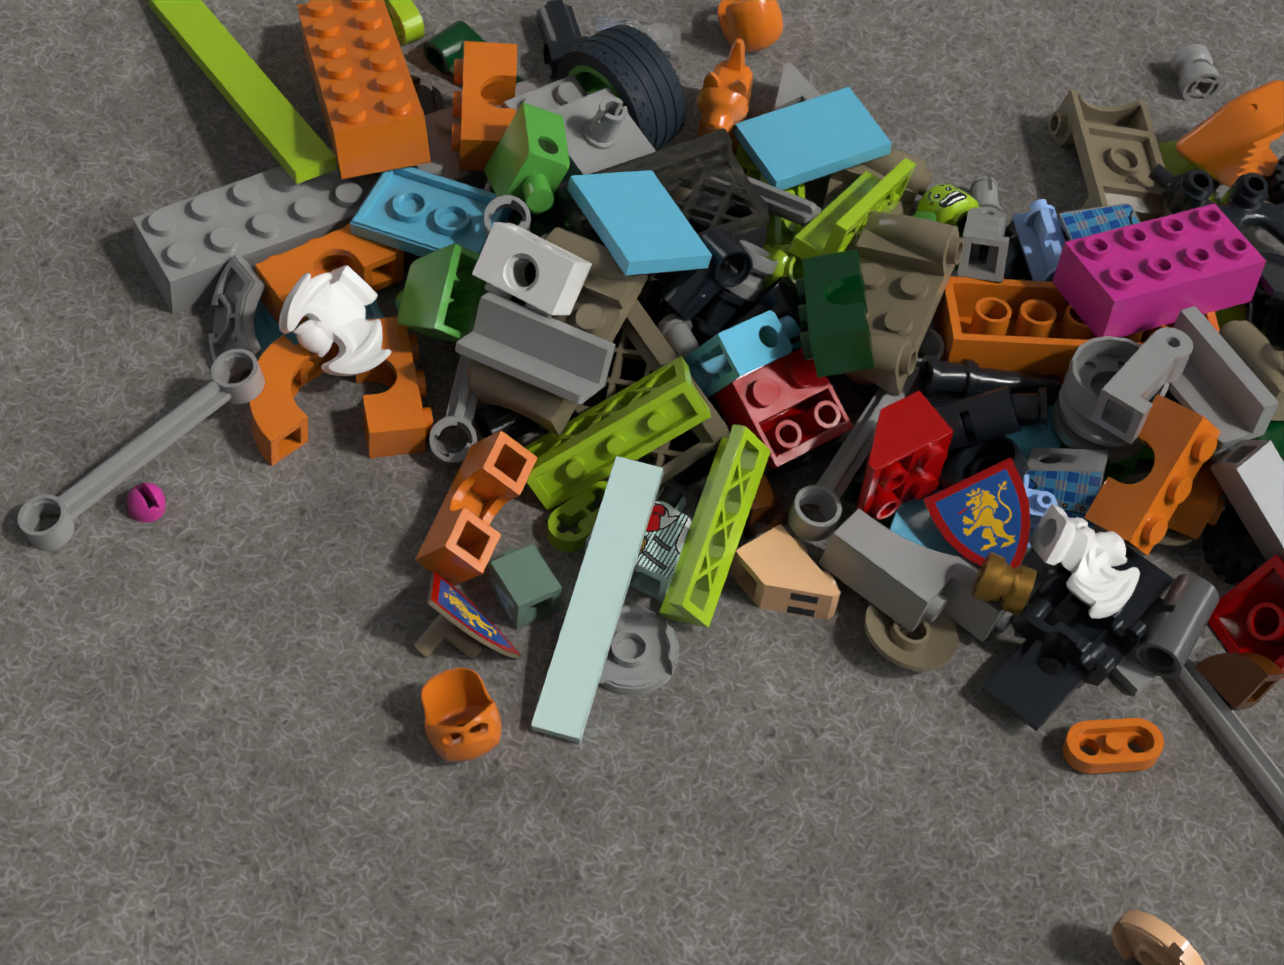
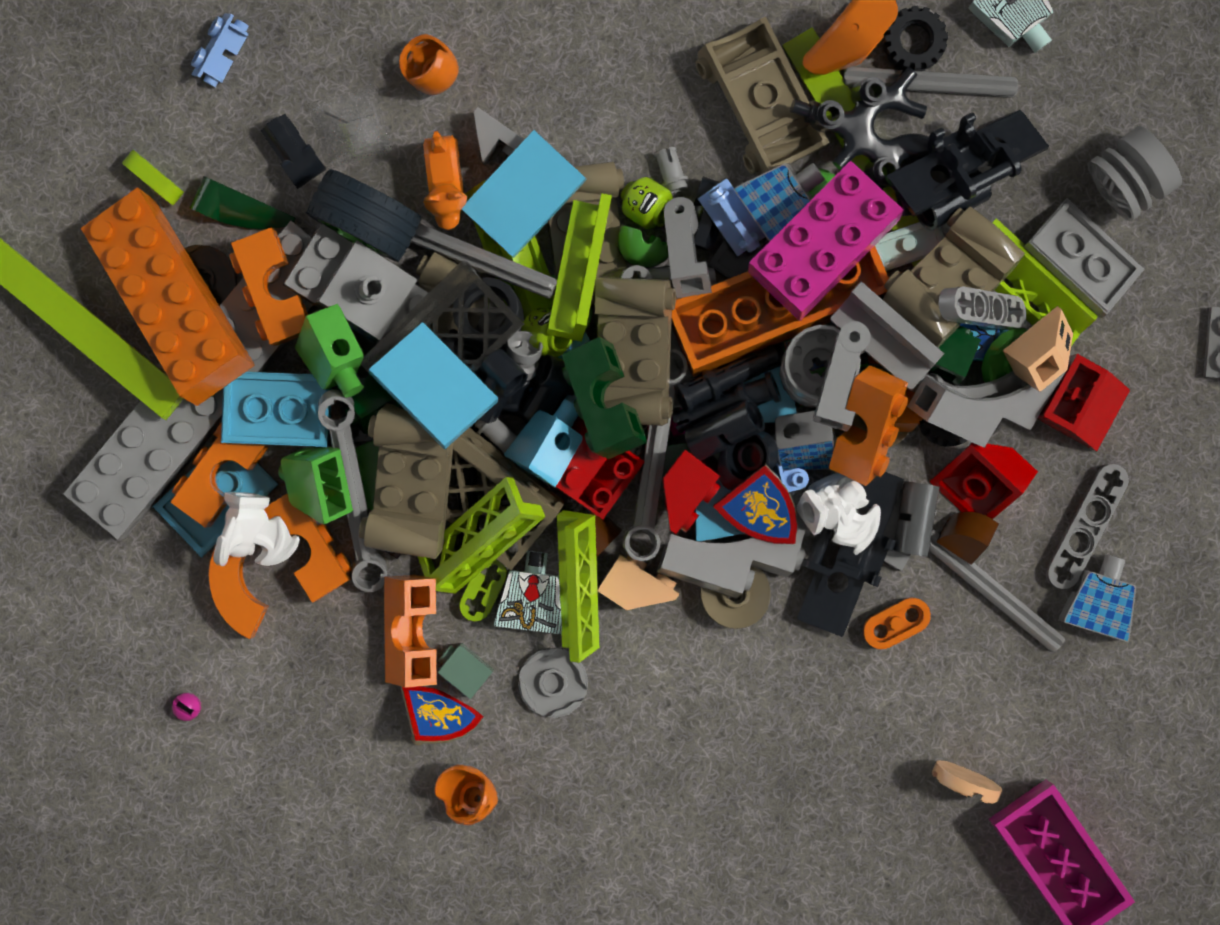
camera: 15 degrees left, 35 degrees up
(141, 450) = (166, 678): light grey piece -> none
(235, 310) = (170, 527): light grey tile -> none
(537, 349) = (403, 522): light grey panel -> none
(557, 270) = (374, 462): white brick -> none
(597, 600) = (519, 666): light aqua tile -> none
(1003, 583) = (790, 560): pearl gold wheel -> none

